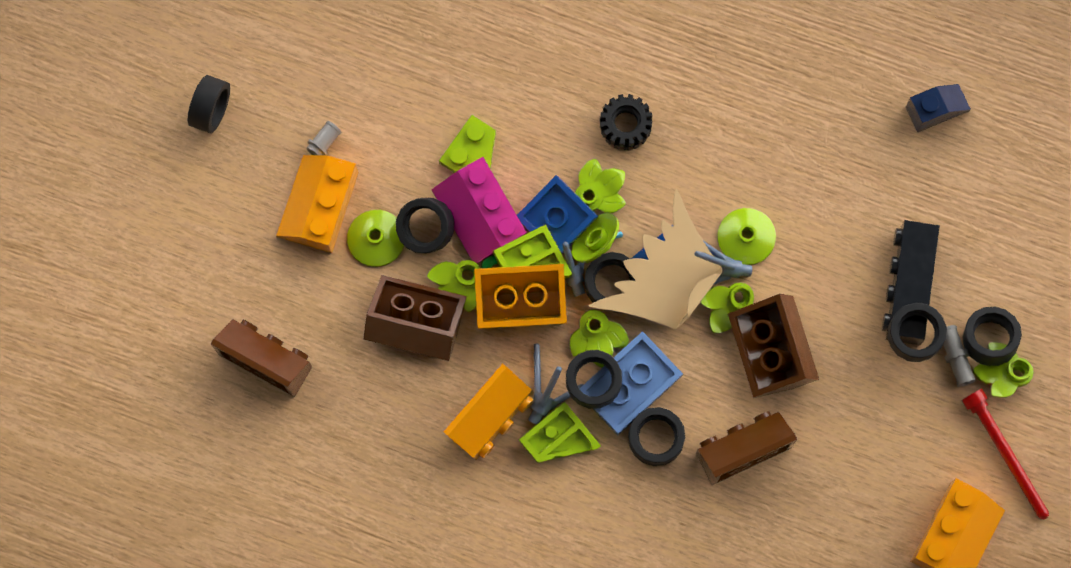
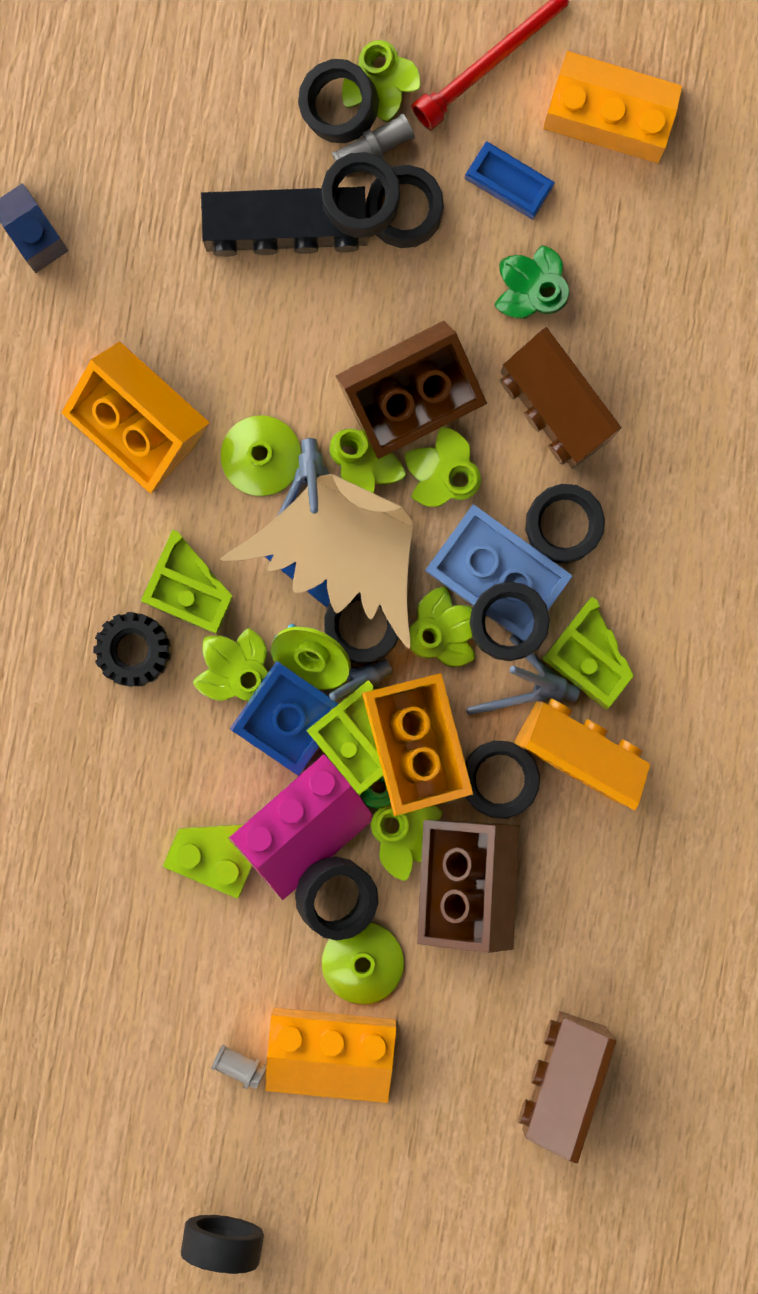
camera: 105 degrees left, 10 degrees up
(470, 337) = (531, 779): none -> black tyre
(662, 167) = (187, 587): none -> lime wing
(713, 356) = (437, 468): none -> lime plate
(789, 153) = (134, 416): none -> light orange slope
(838, 447) = (526, 282): none -> green plate
(905, 391) = (427, 183): none -> black tyre
(915, 449) = (509, 180): none -> blue tile

